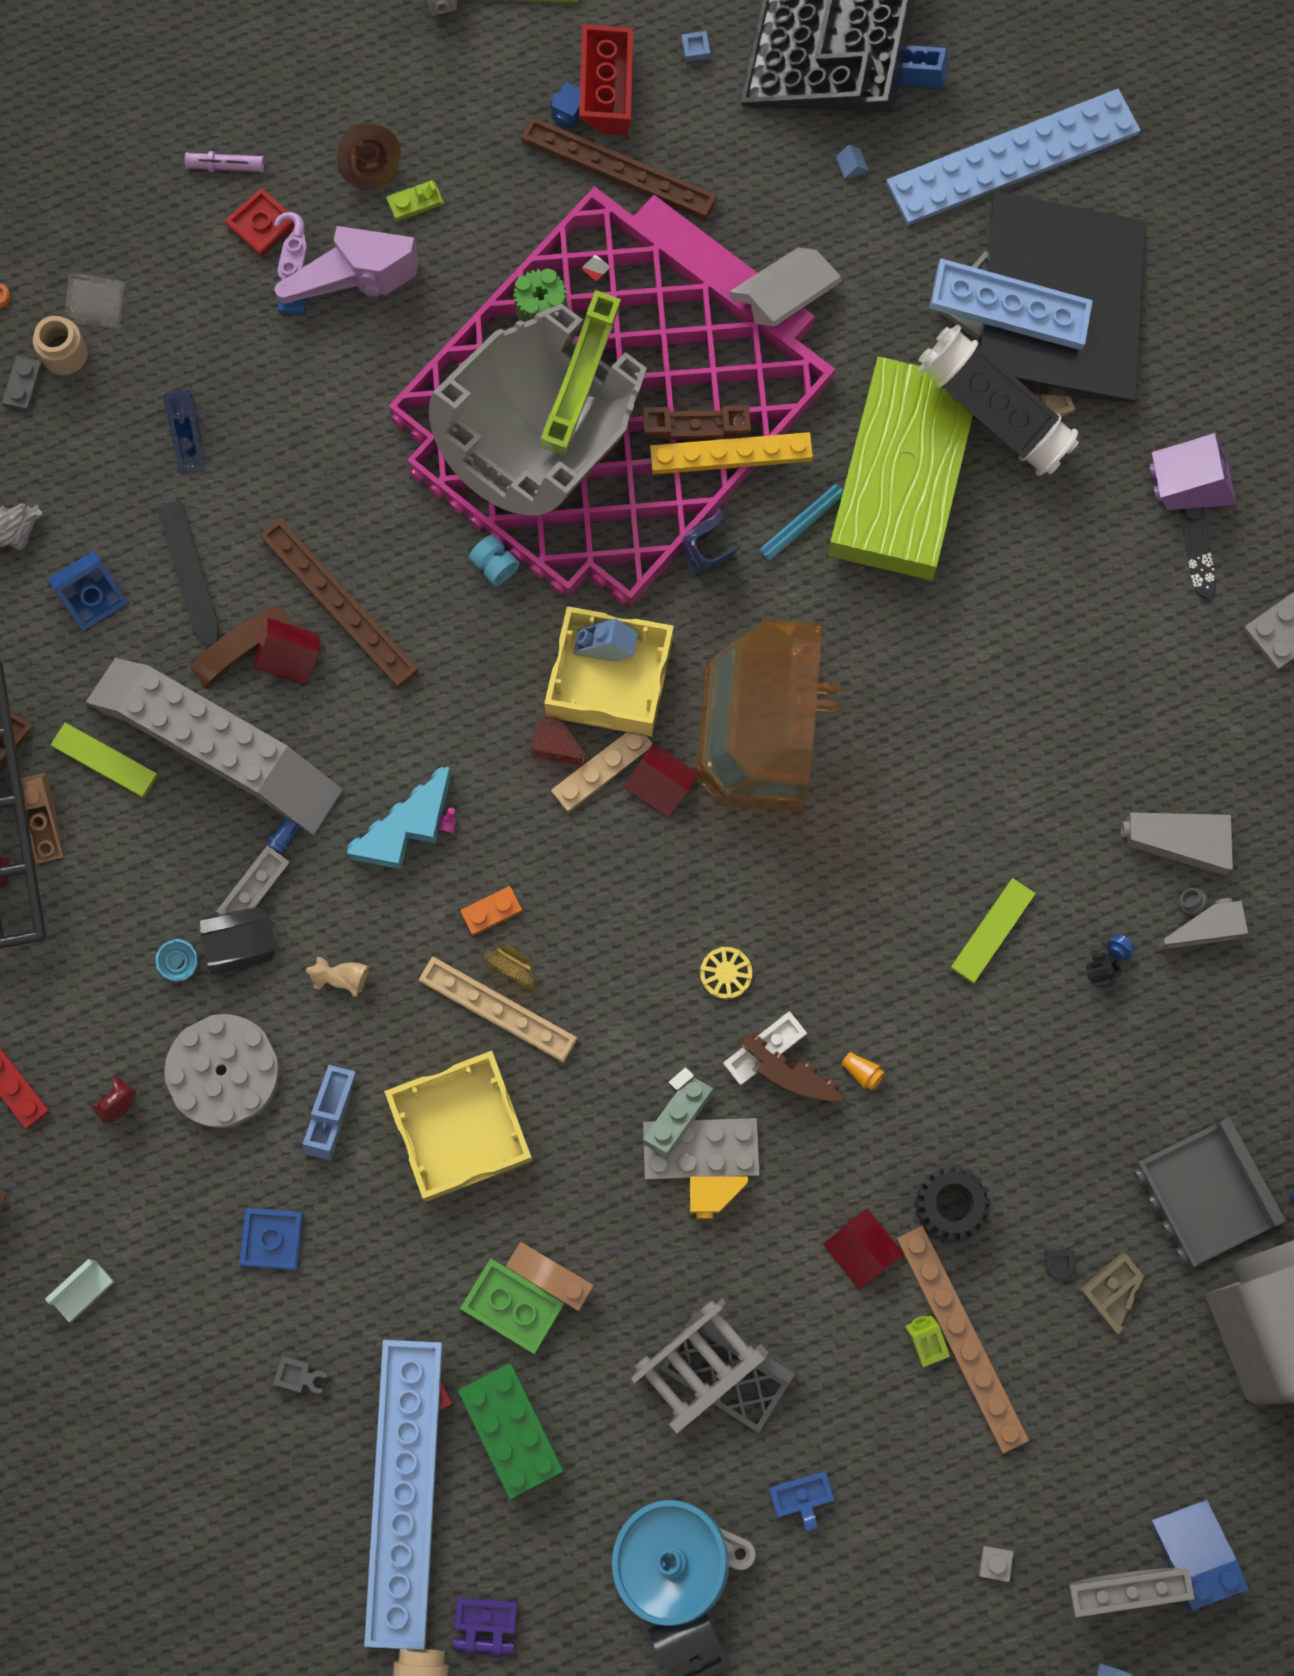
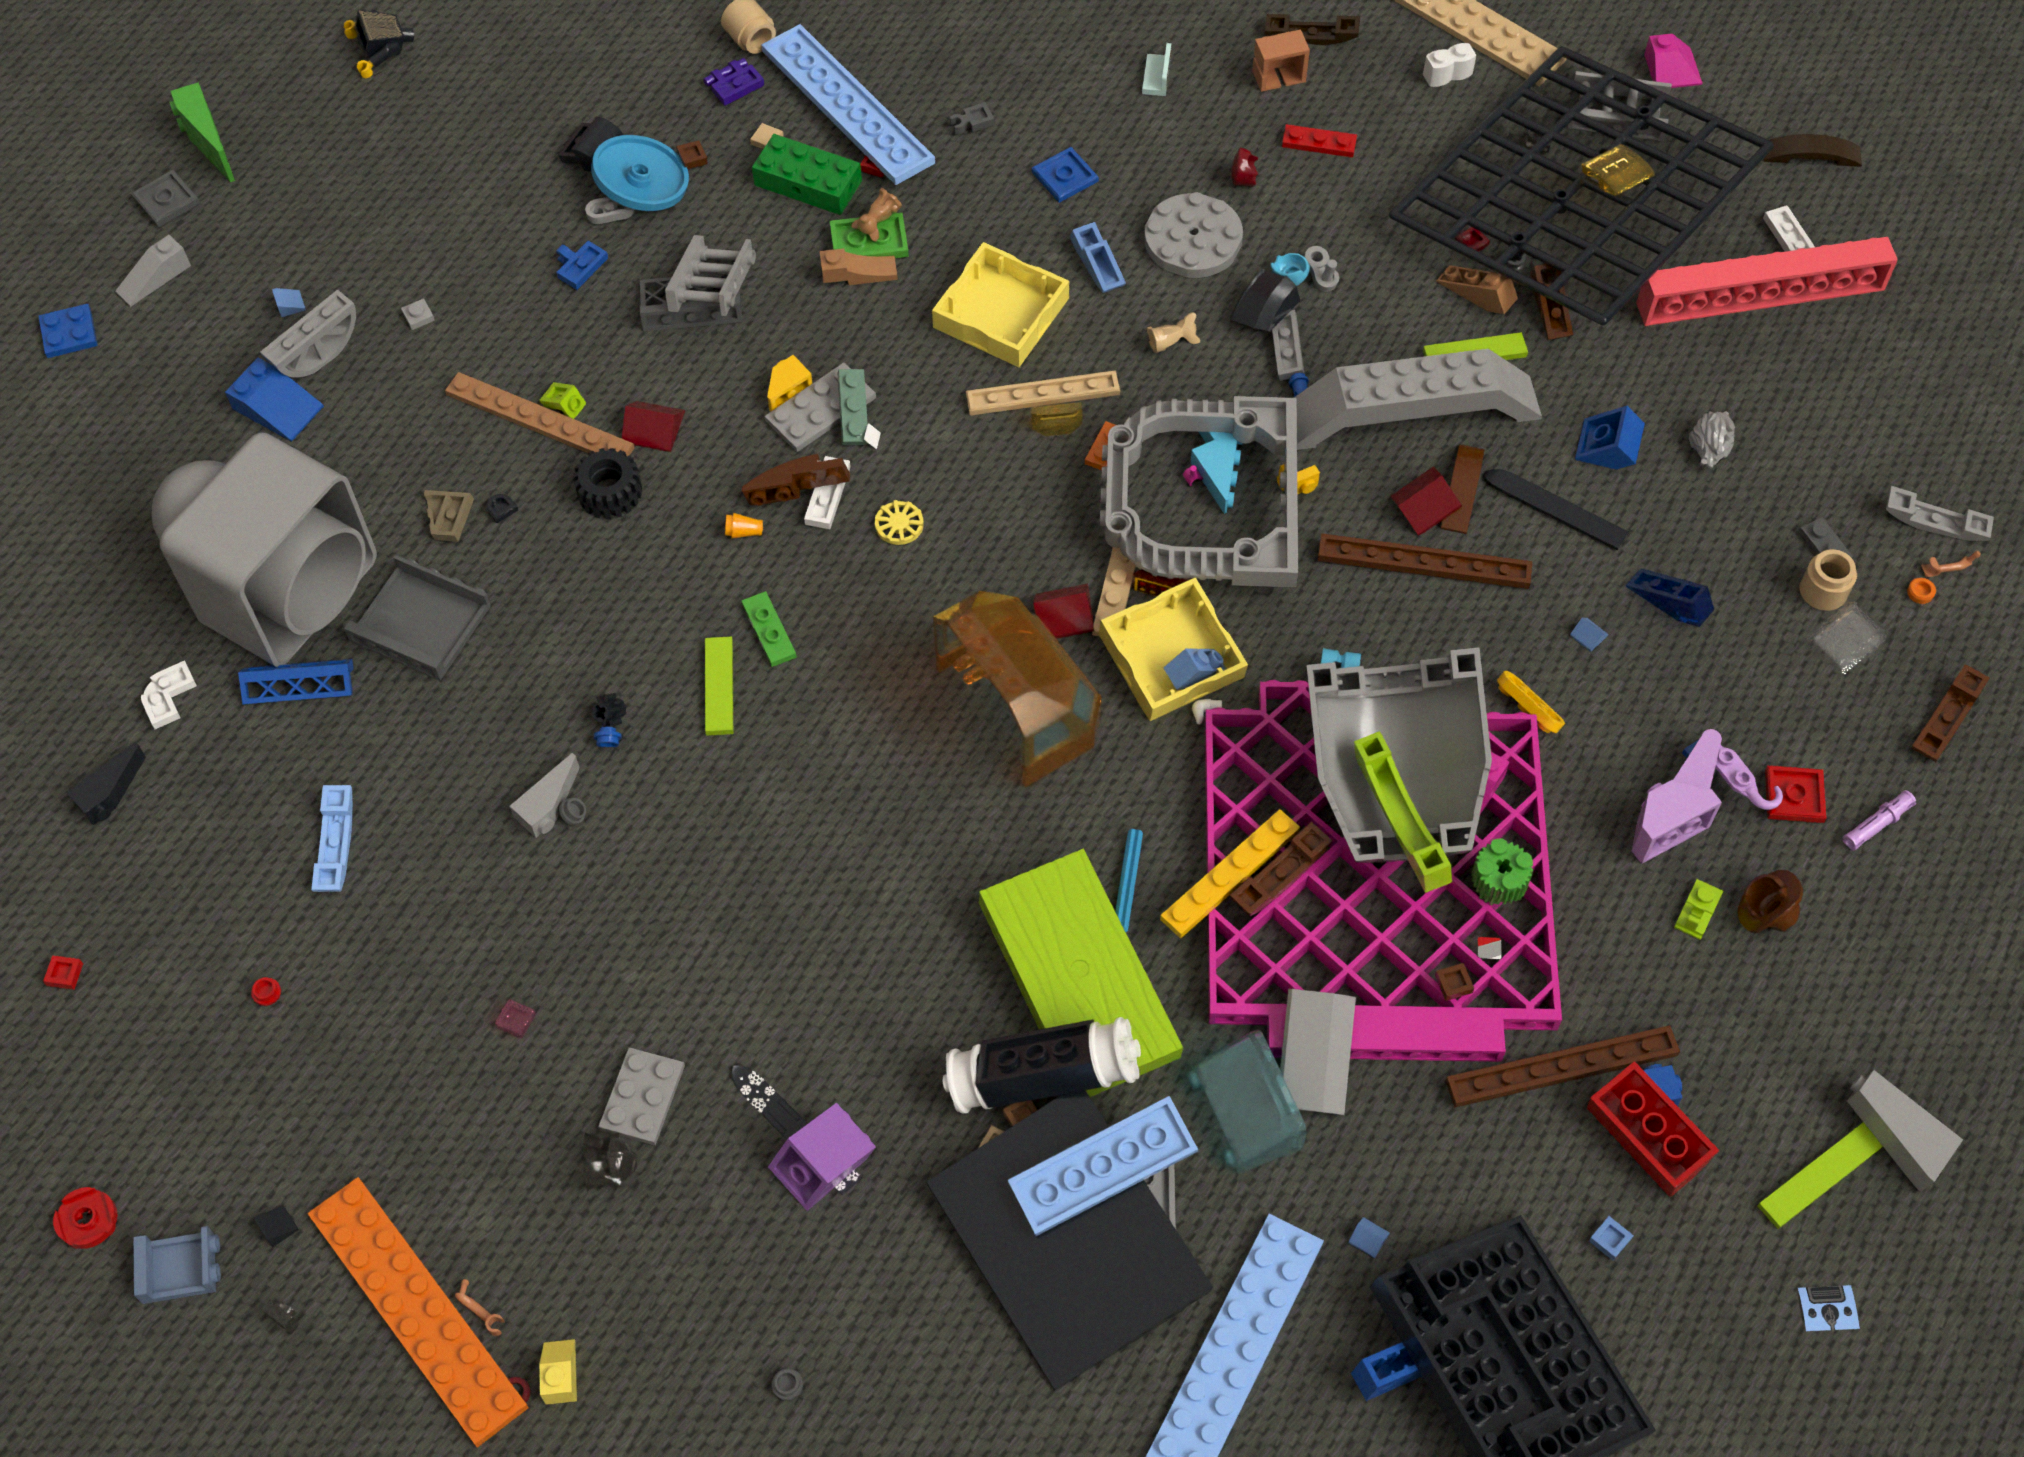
camera: 140 degrees right, 15 degrees down
(92, 194) = (1950, 713): none -> reddish brown slope
(151, 937) = (1323, 272): none -> light grey piece
(274, 450) = (1588, 634): none -> medium blue slope
(367, 744) = (1306, 479): none -> yellow bracket
(376, 428) = (1530, 702): none -> yellow plate
(459, 675) = (1268, 422): none -> light grey arch
(483, 1316) = (880, 210): none -> medium nougat animal
(508, 1521) = (763, 135): none -> tan tile
(599, 1554) = (692, 154): none -> reddish brown plate
(614, 611) = (1200, 707): none -> white animal
(647, 256) = (1454, 981): none -> reddish brown plate
(697, 533) = (1173, 779): dark blue piece -> none
(860, 296) = (1250, 1102): none -> clear light blue windscreen
(913, 953) = (769, 629): none -> bright green plate
(1186, 838) = (613, 851): light grey slope -> none

